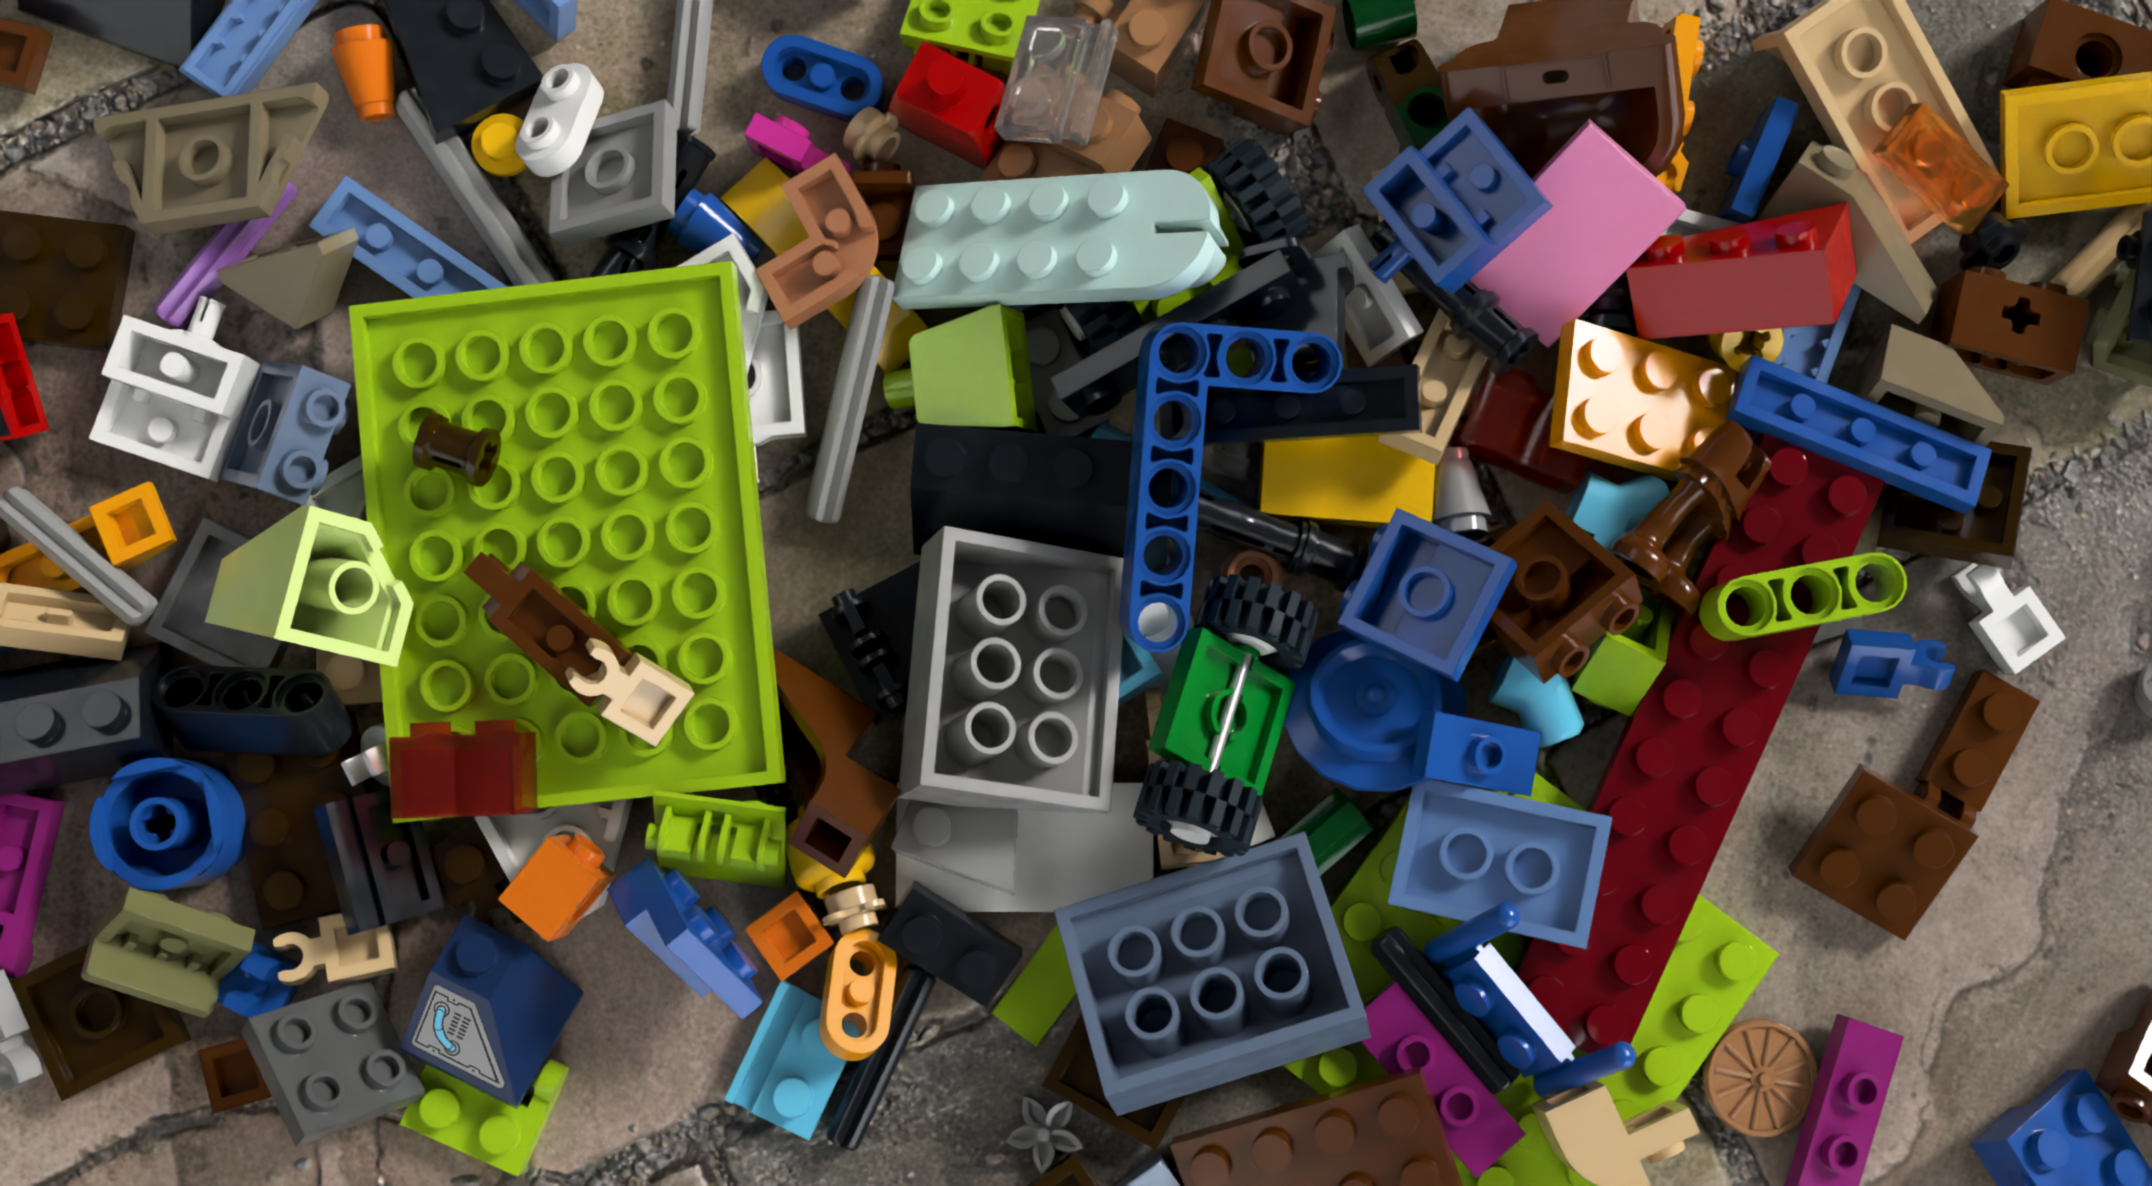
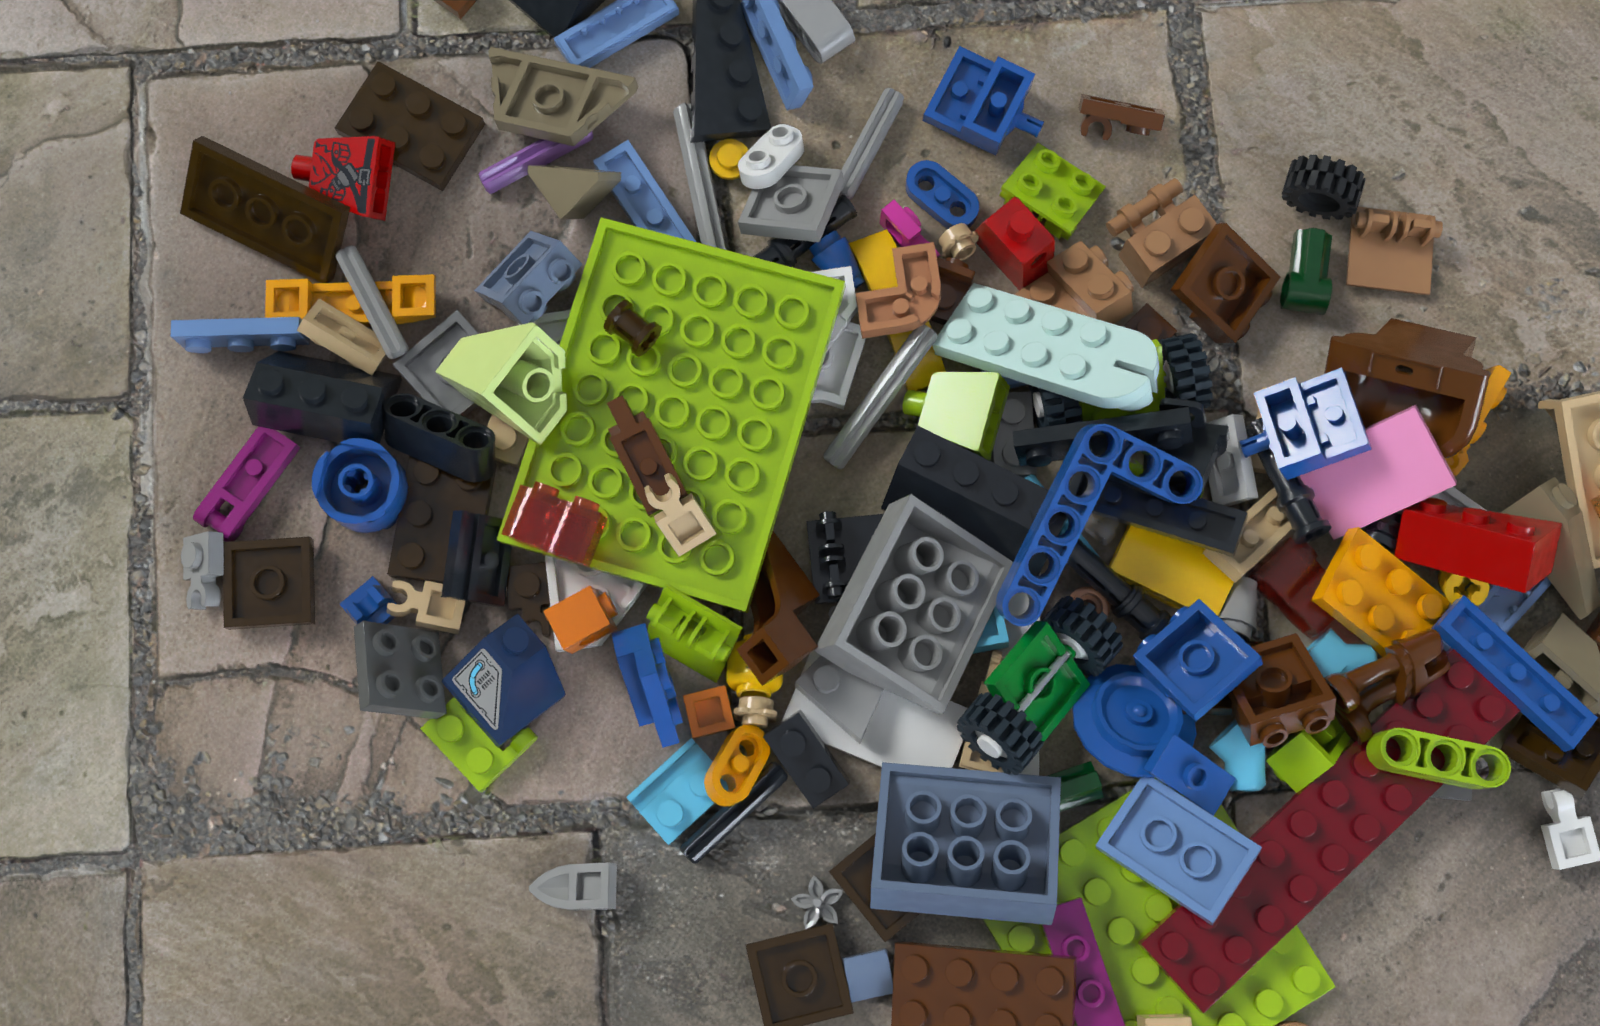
camera: 25 degrees right, 5 degrees down
(165, 951) = (327, 560): olive bracket -> none
(175, 393) = (470, 229): white plate -> none
(232, 1075) = (334, 657): reddish brown tile -> none
(367, 70) = (666, 82): orange cone -> none
(371, 760) = (498, 496): white plate -> none
(1039, 991) = (850, 813): lime sticker -> none
(1056, 80) = (1088, 252): clear plate -> none
(1409, 92) = (1306, 346): leg -> none
(1438, 1003) = (1105, 929): black axle -> none
(1511, 1013) = (1147, 946): blue plate -> none
(1755, 160) = (1512, 476): blue plate -> none
(1883, 661) = (1476, 826): blue plate -> none
(1883, 852) = (1428, 948): reddish brown plate -> none
(1975, 745) = (1510, 911): reddish brown hinge -> none

